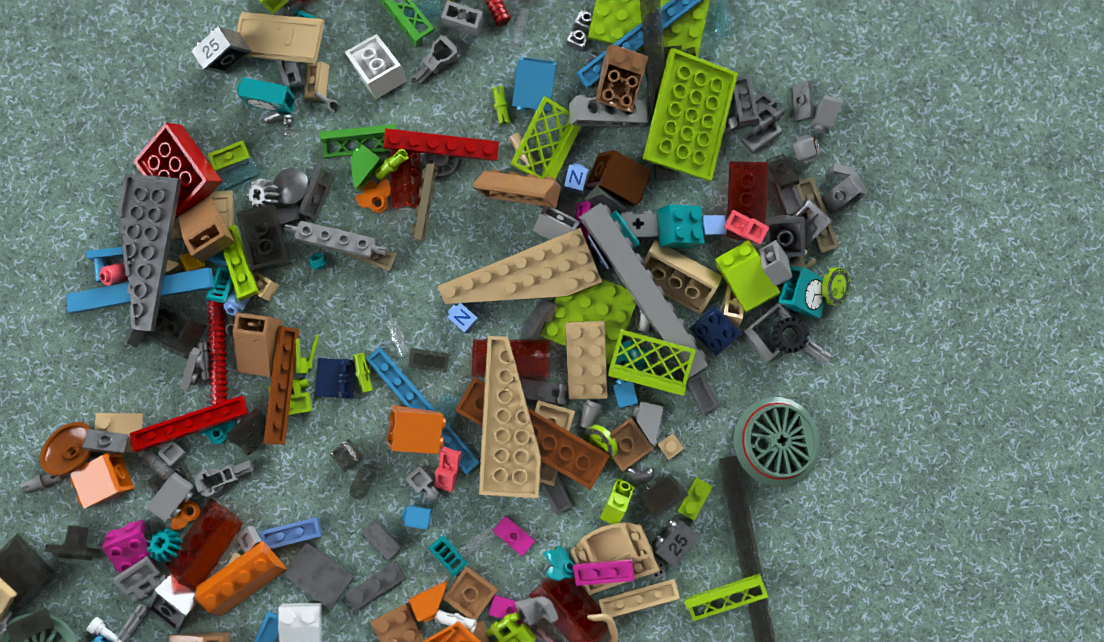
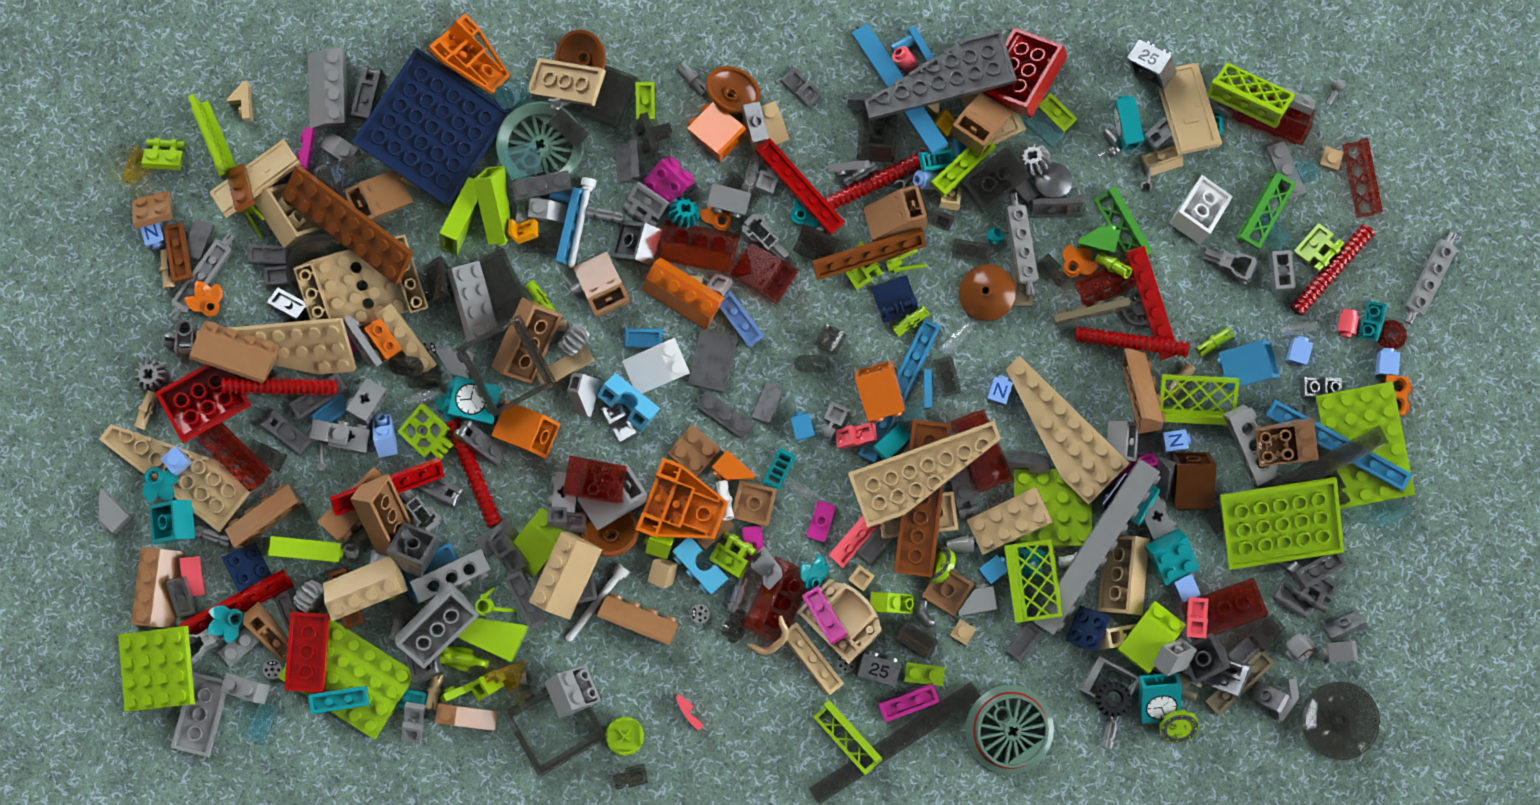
camera: 70 degrees right, 0 degrees up
(40, 535) = (645, 99): none -> lime plate
(92, 577) = (627, 161): none -> flat silver panel
(97, 381) = (801, 87): none -> flat silver slope
(258, 490) = (765, 273): none -> clear red slope
(282, 302) = (943, 220): none -> flat silver slope
(322, 288) = (971, 251): none -> clear smoke plate
(370, 225) = (1049, 268): none -> clear smoke plate
(379, 287) = (994, 303): none -> dark orange dish
(432, 384) = (927, 388): none -> dark azure tile
(467, 438) = (892, 442): none -> teal slope
(470, 176) = (1132, 341): none -> red piece
(541, 34) = (1299, 351): none -> light blue brick
(546, 517) = (851, 542): none -> coral plate
(582, 520) = (861, 578): none -> tan plate
(715, 525) = (908, 702): none -> dark pink plate
(886, 140) = (1340, 720): none -> clear smoke dish

